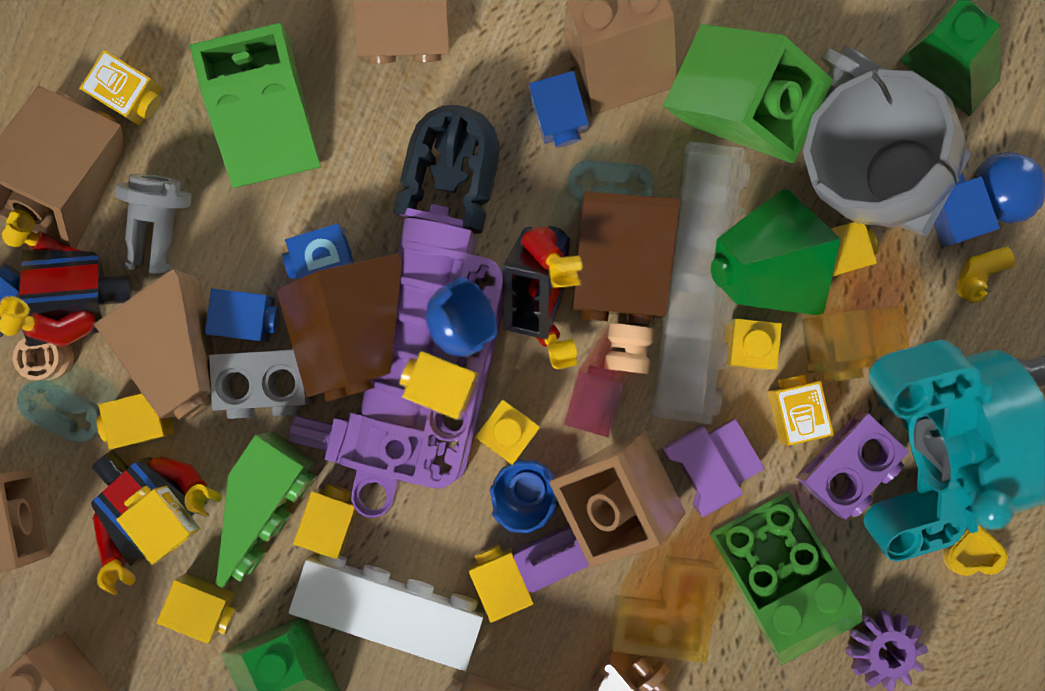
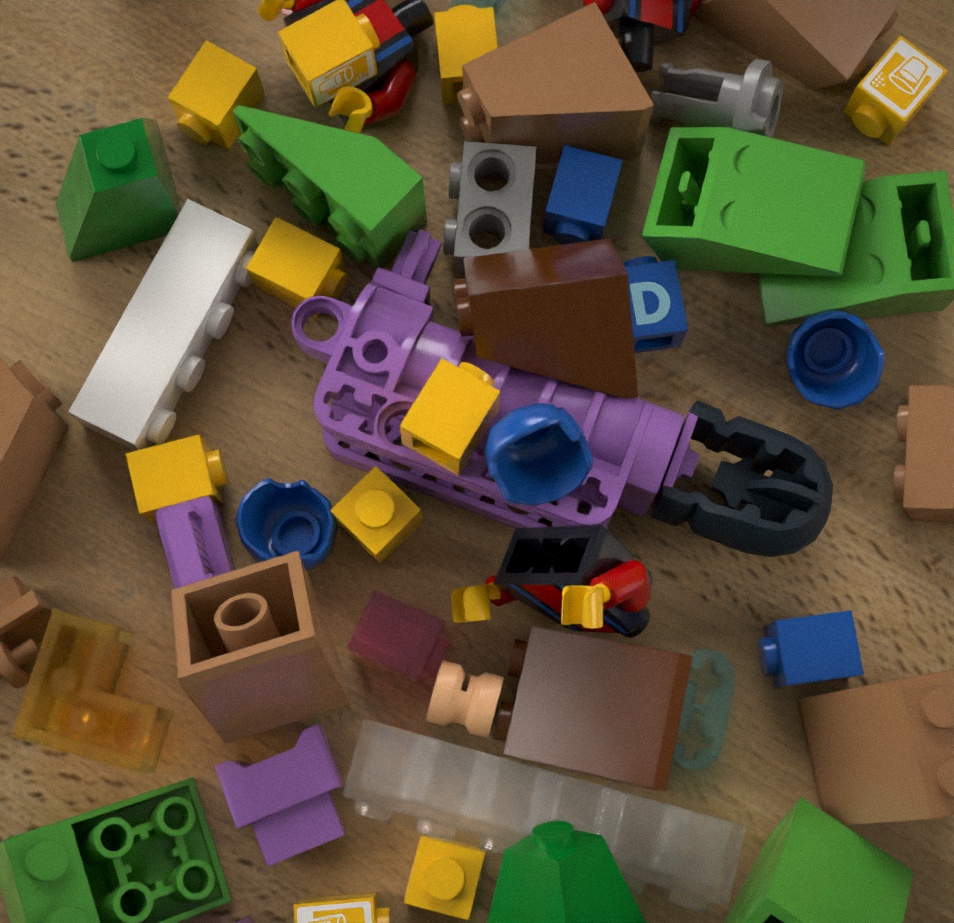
camera: 100 degrees right, 10 degrees down
(234, 186) = (752, 204): none -> bright green slope
(343, 113) = (834, 359): none -> blue hair

